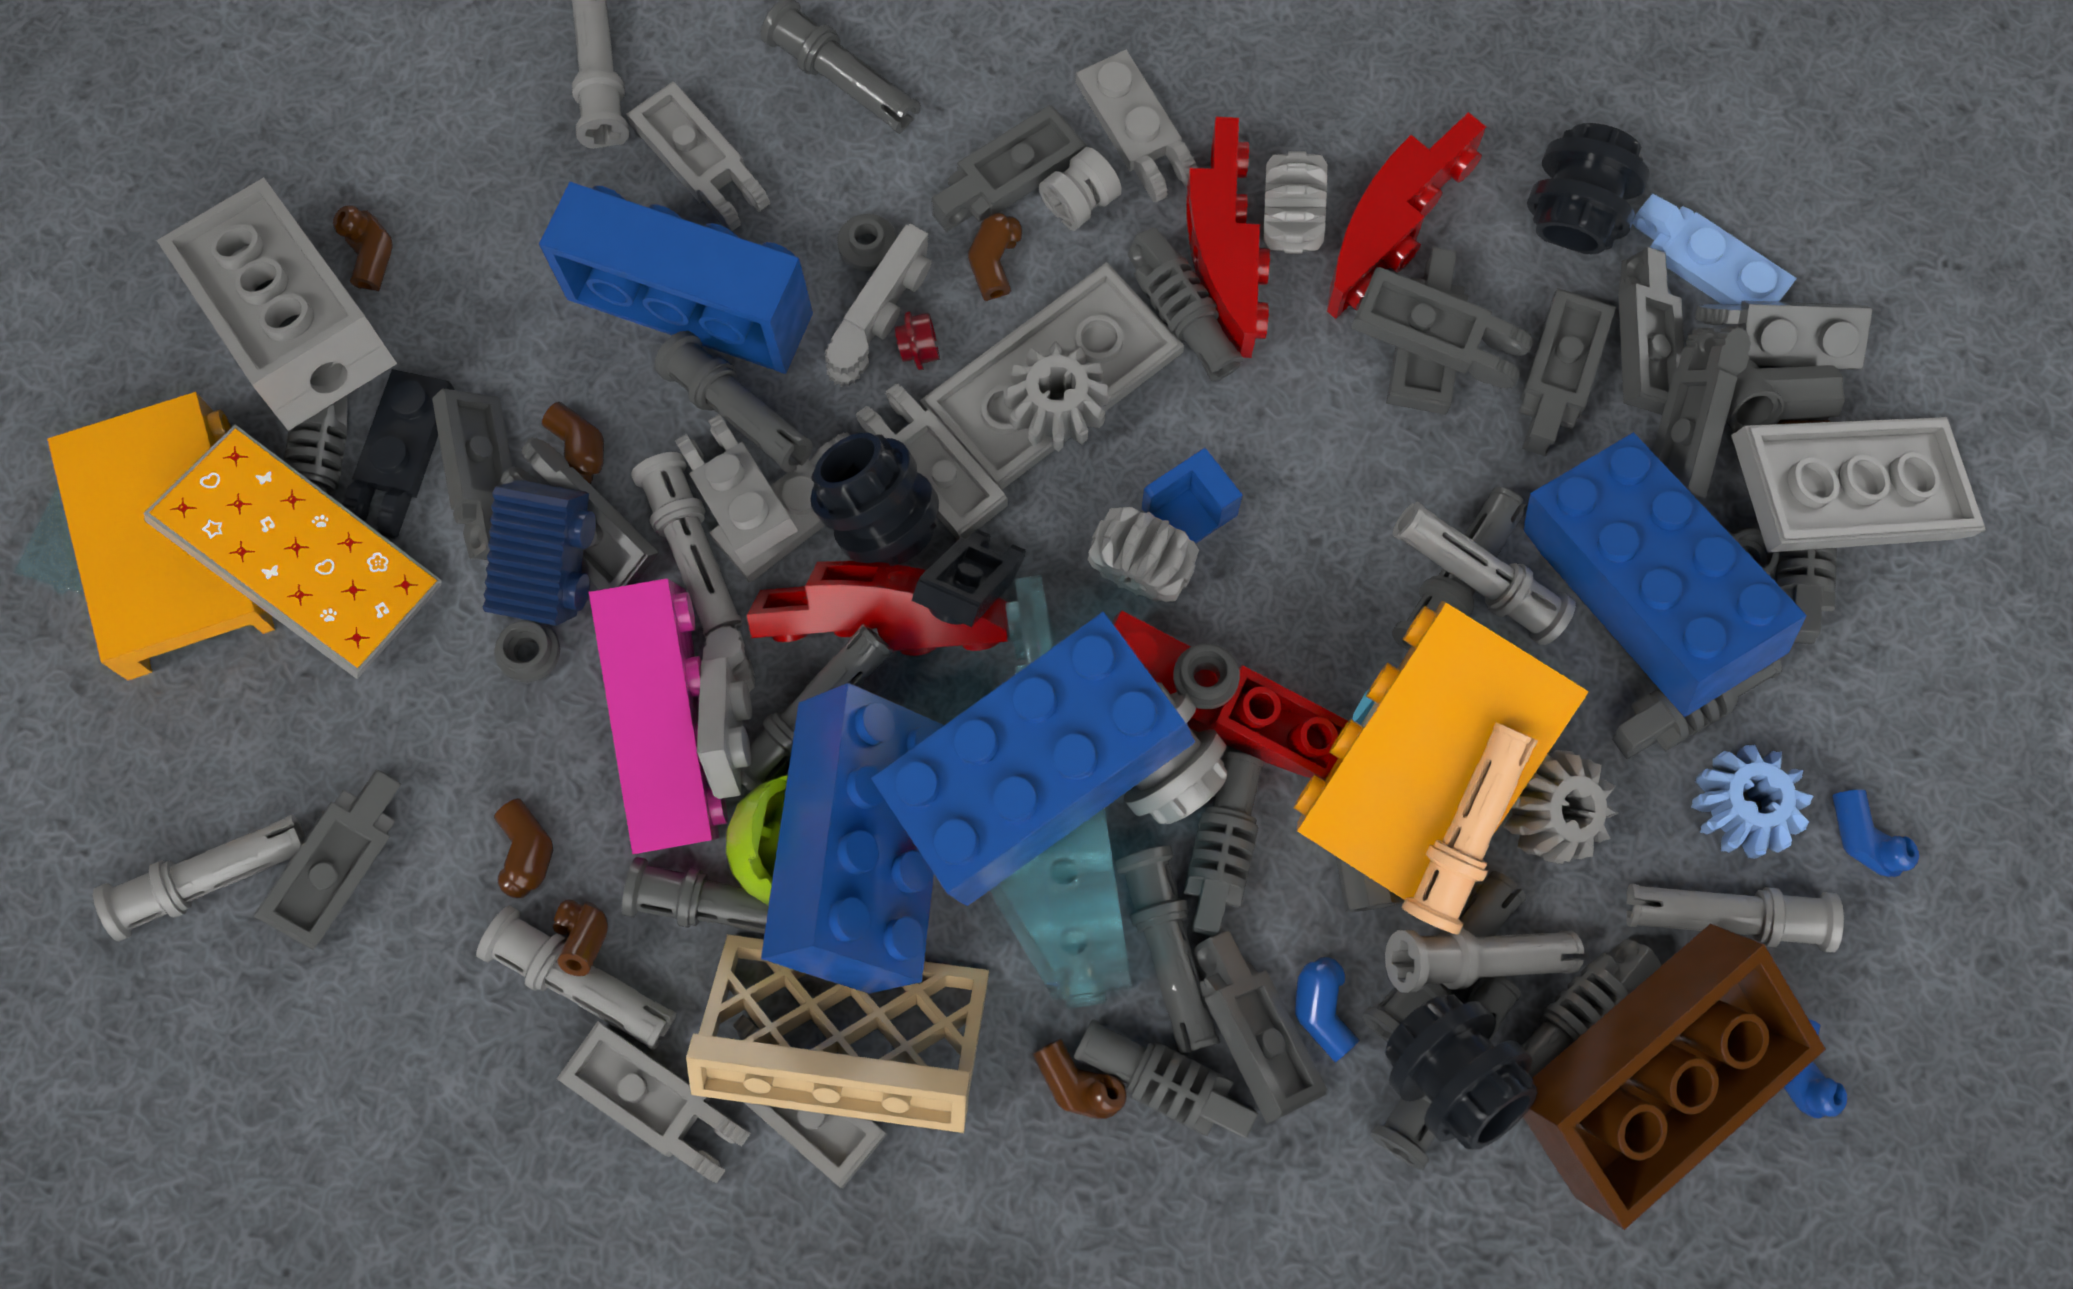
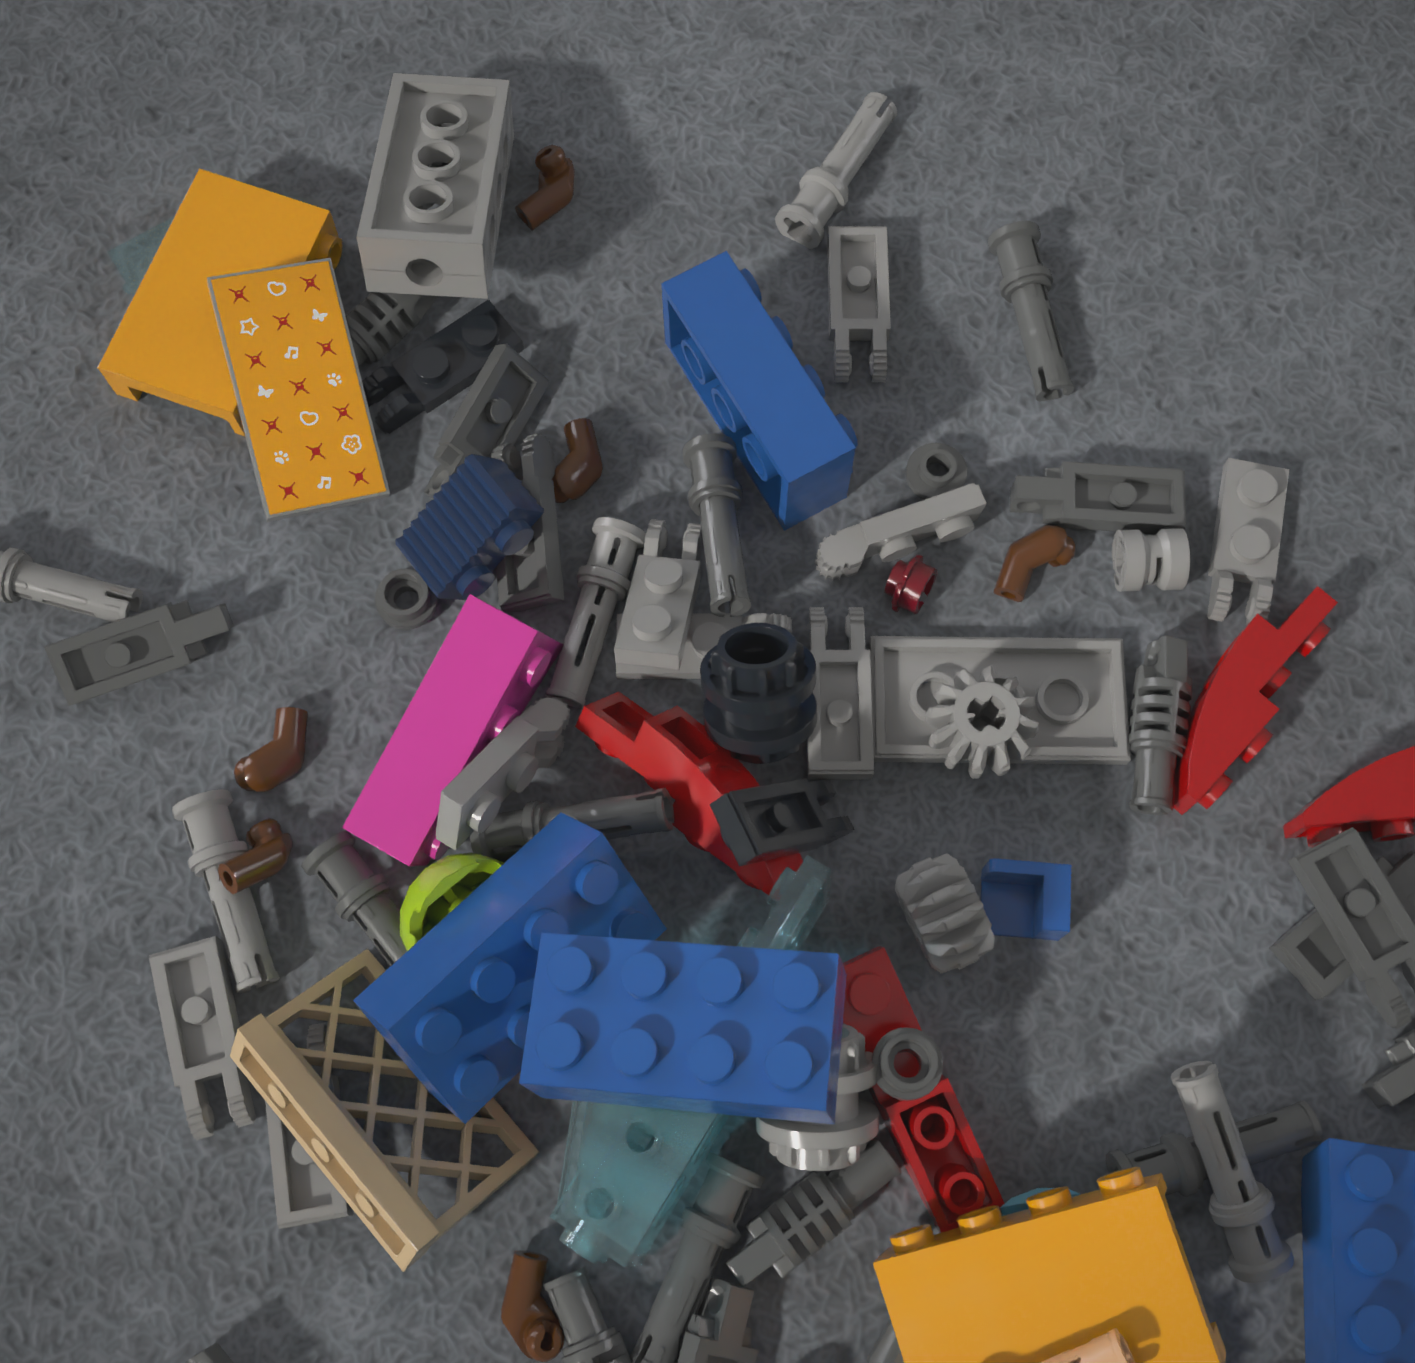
camera: 40 degrees right, 0 degrees up
(1295, 202) = (1328, 712): light grey gear -> none

